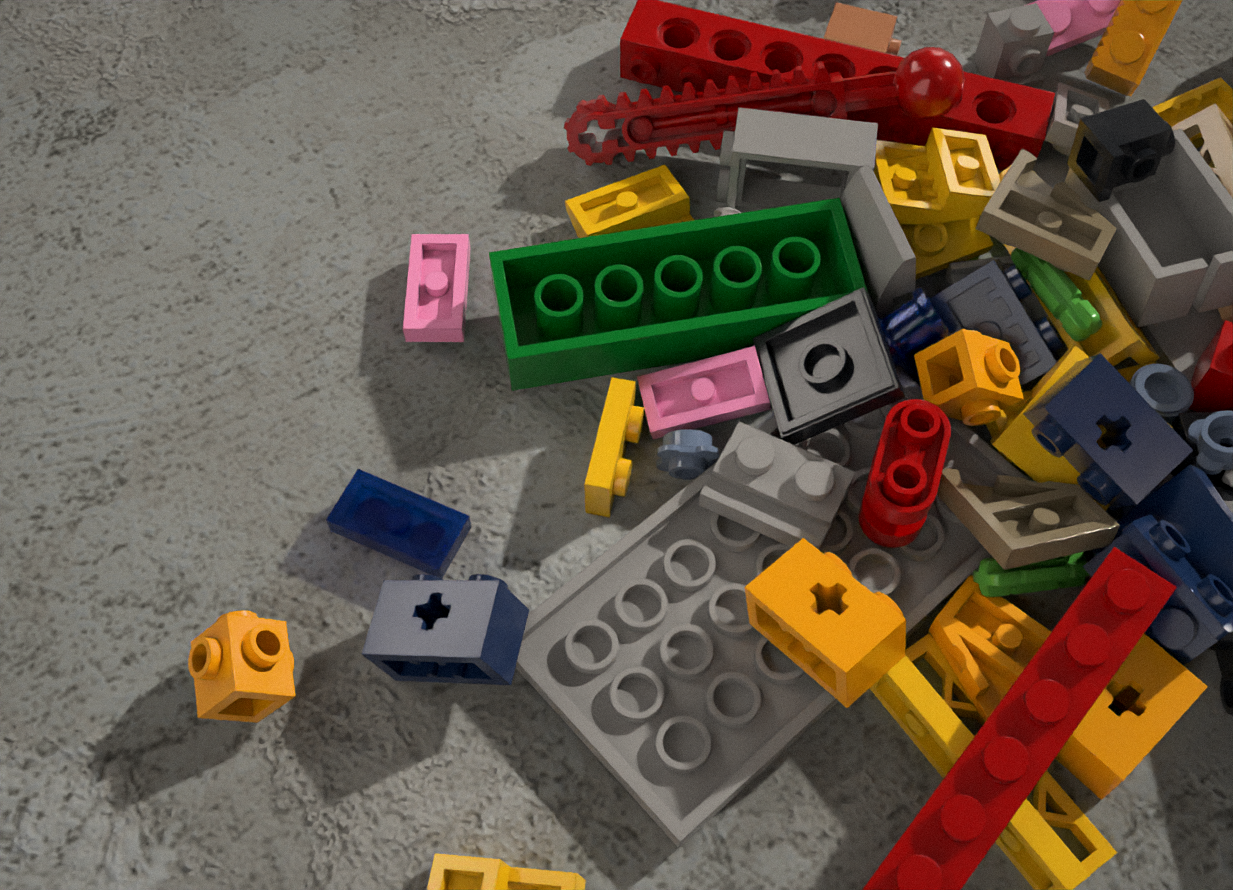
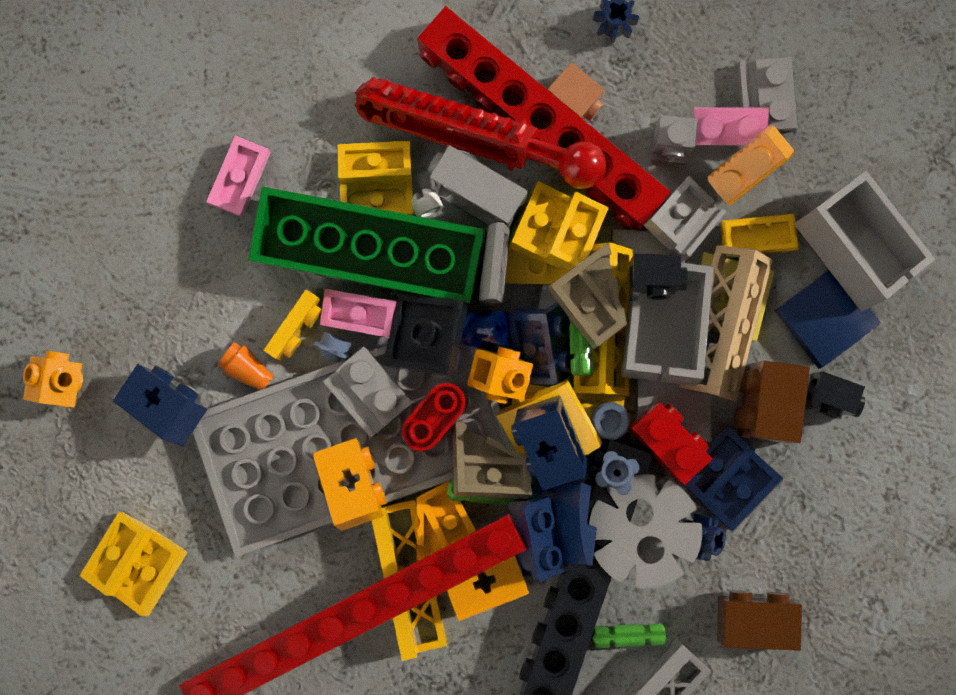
camera: 20 degrees right, 25 degrees up
(399, 523) = (162, 324): clear blue plate -> none
(558, 536) = (244, 367): none -> orange cone

